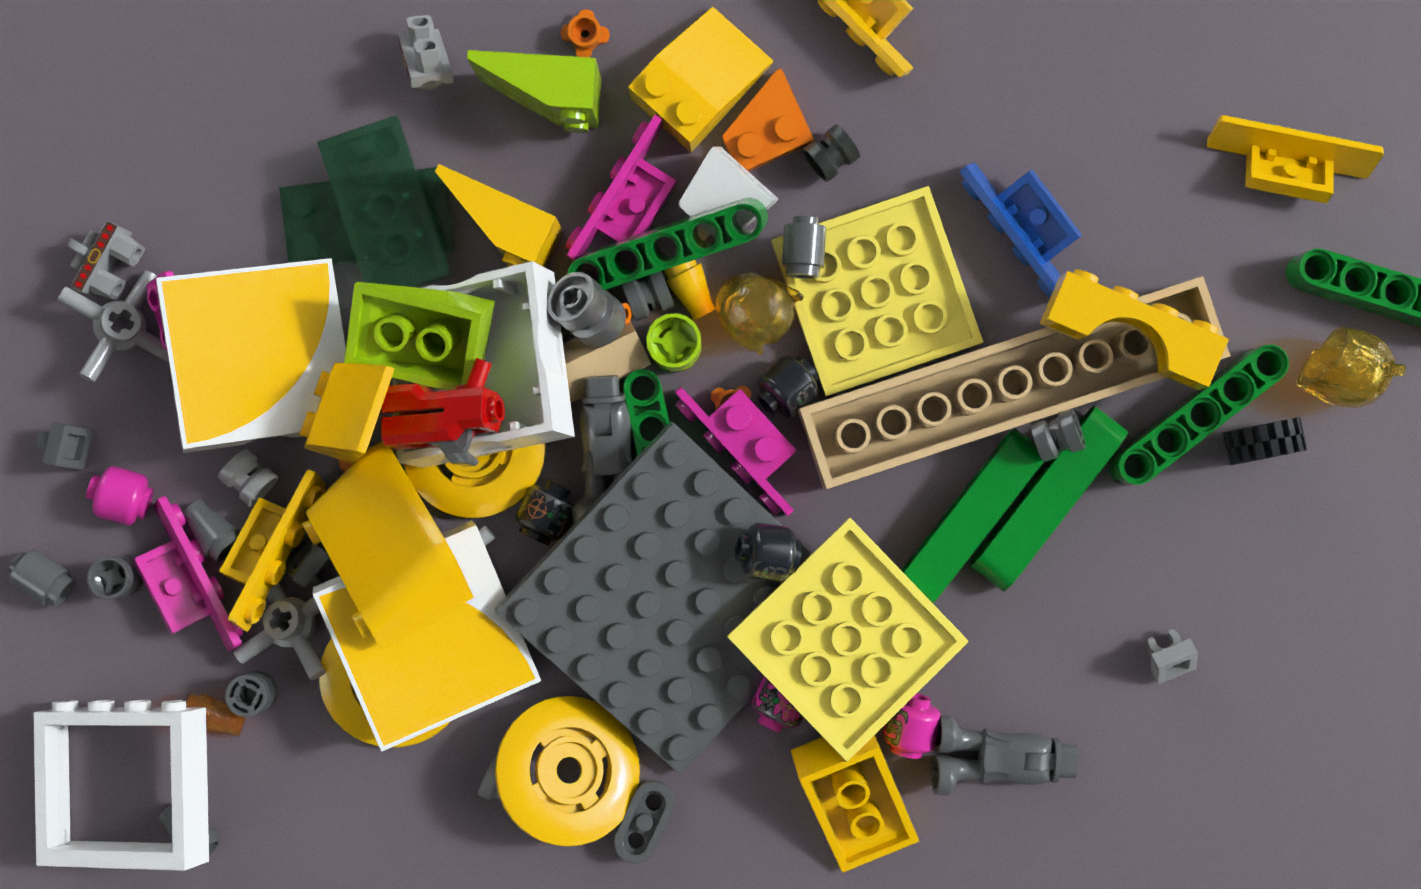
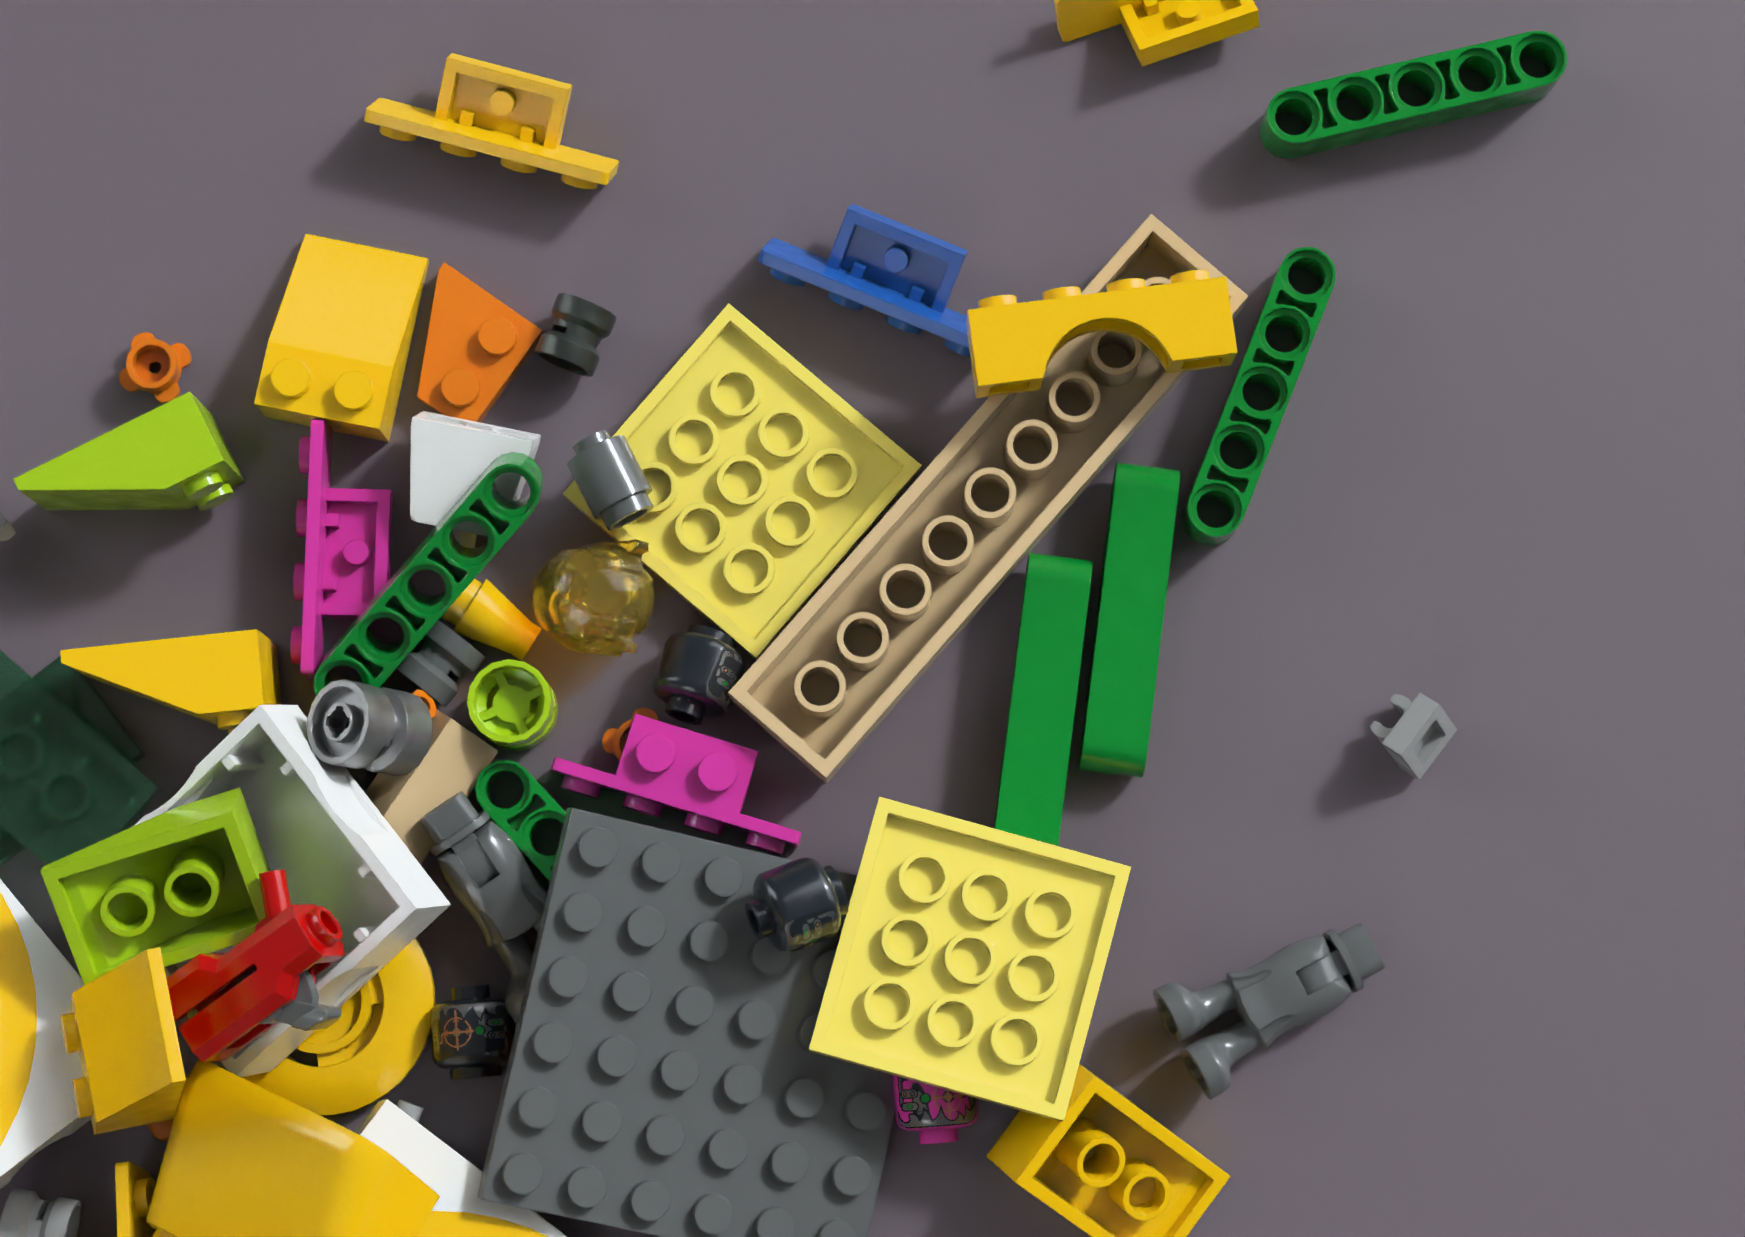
camera: 40 degrees left, 5 degrees down
(913, 728) = (1129, 1027): dark pink head -> none
(1058, 435) = (1087, 529): dark grey wheel -> none
(1265, 441) = (1361, 379): black tyre -> none
(1349, 369) = (1416, 223): clear yellow helmet -> none

